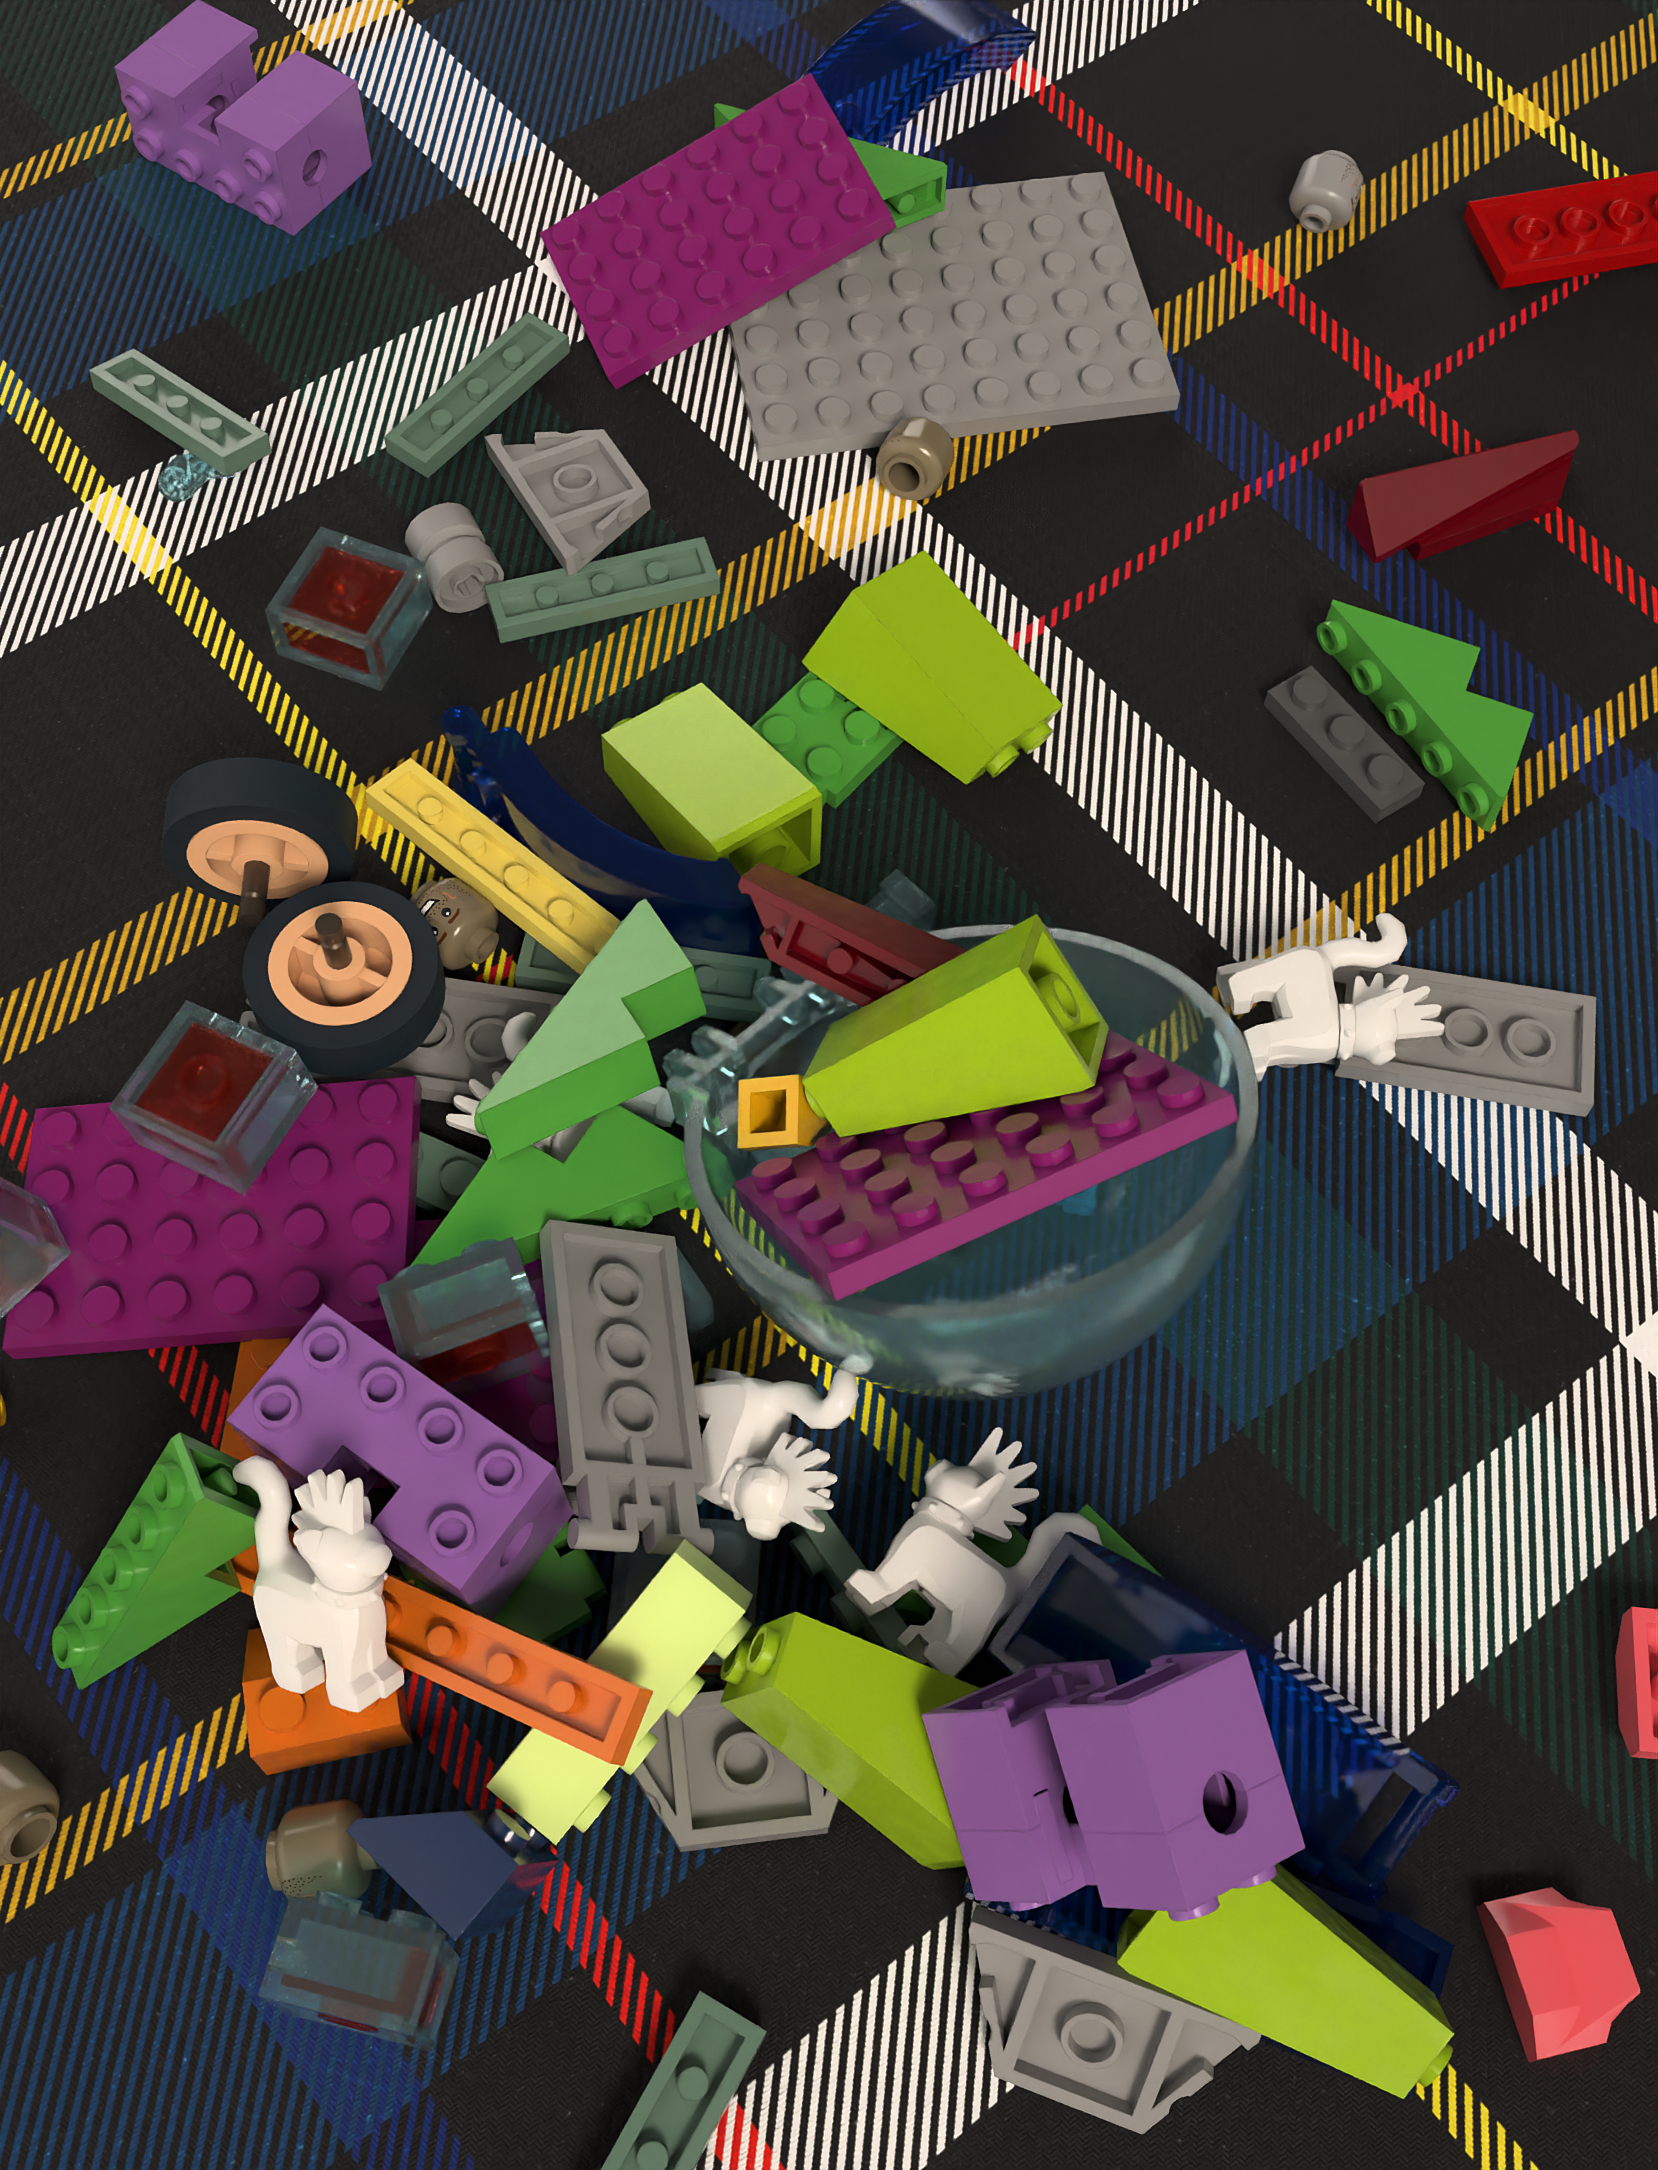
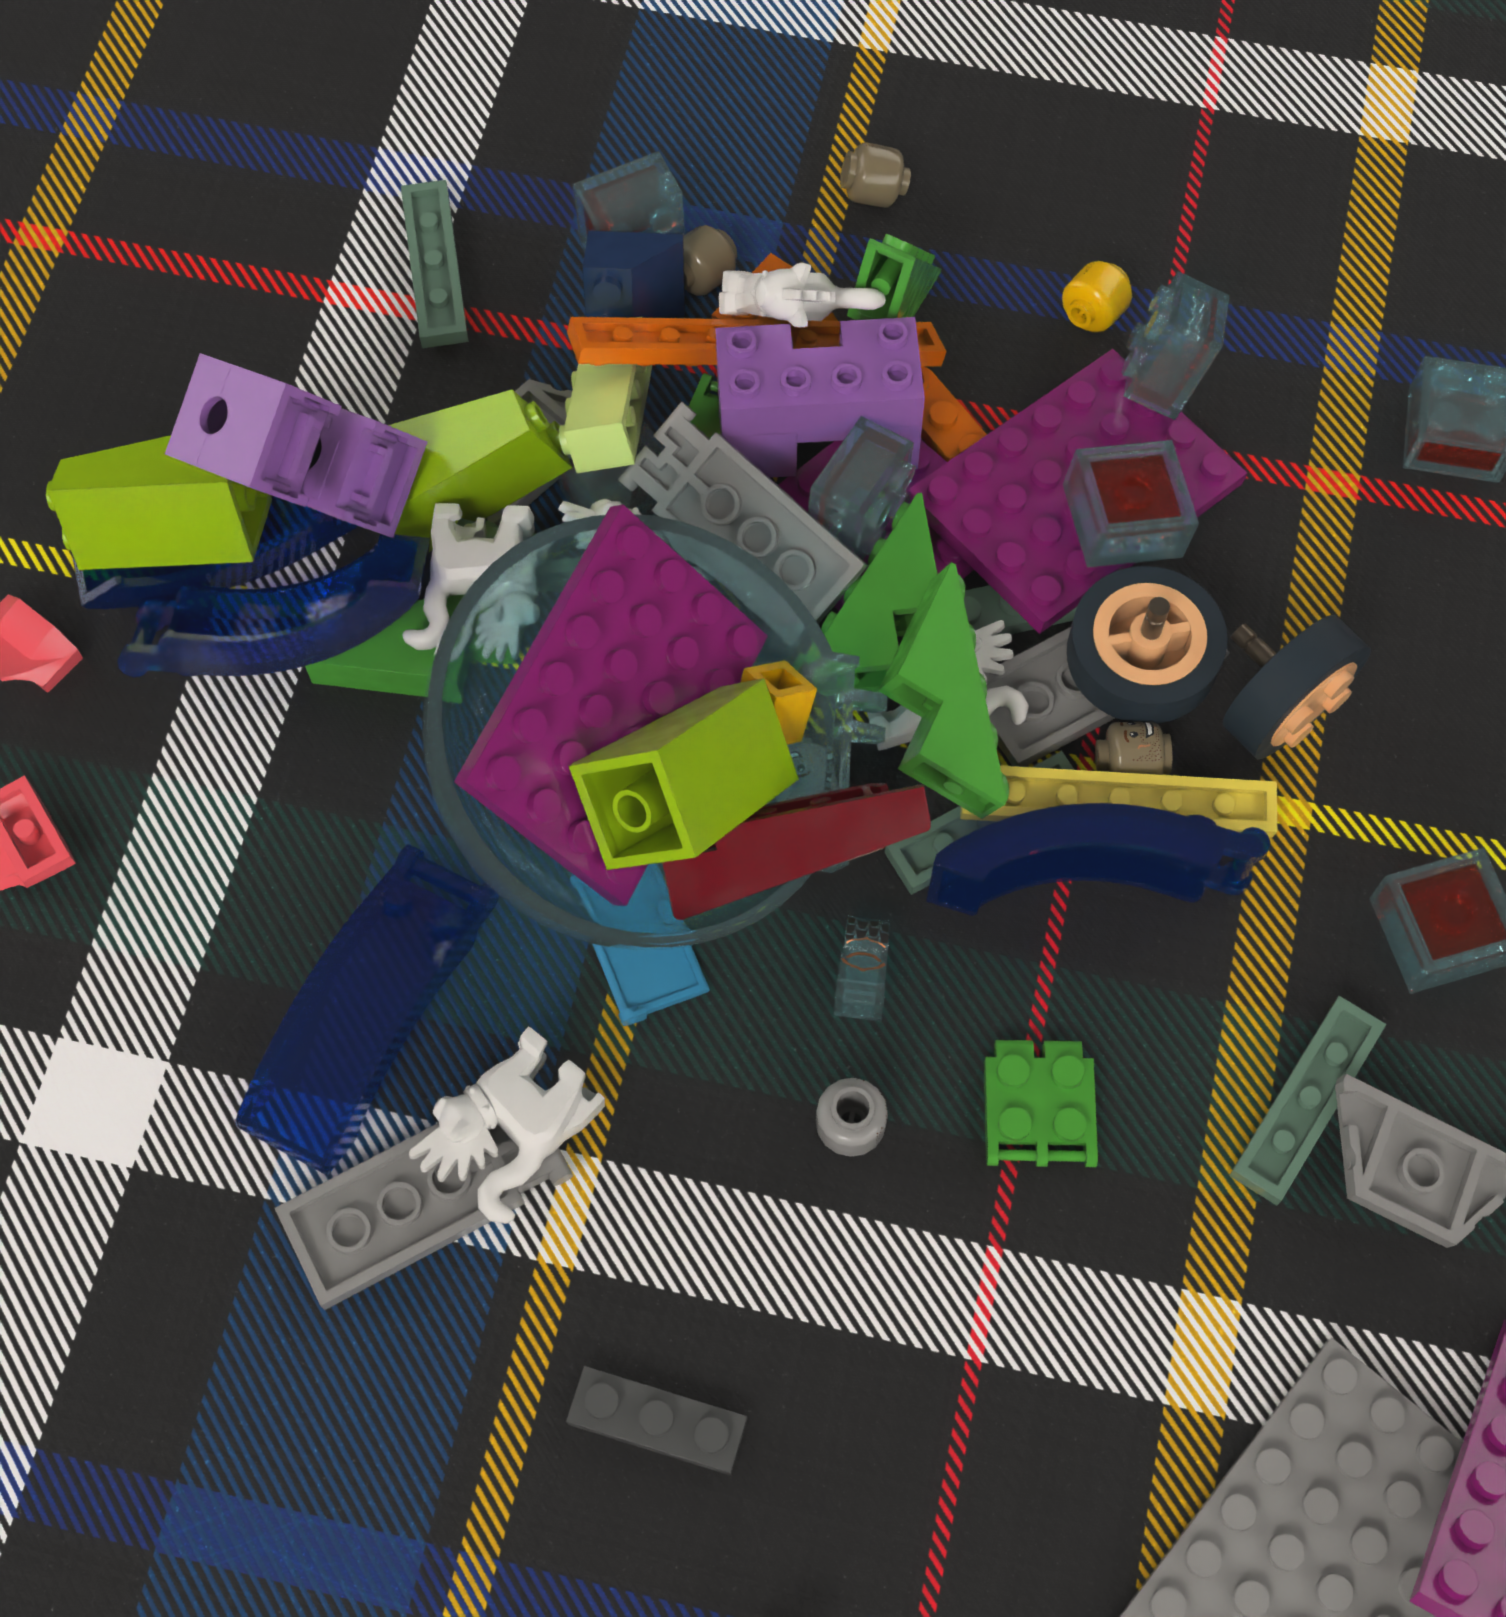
camera: 145 degrees right, 5 degrees up
(454, 556) = (1430, 1027): light grey wheel -> none
(714, 785) = (1066, 975): lime slope -> none
(915, 458) = (1200, 1424): dark tan head -> none
(934, 671) = (991, 1194): lime slope -> none
(1001, 816) = (855, 1100): none -> light grey head
(1388, 1225) = (360, 1010): none -> clear blue windscreen
(1422, 692) = (623, 1517): bright green slope -> none

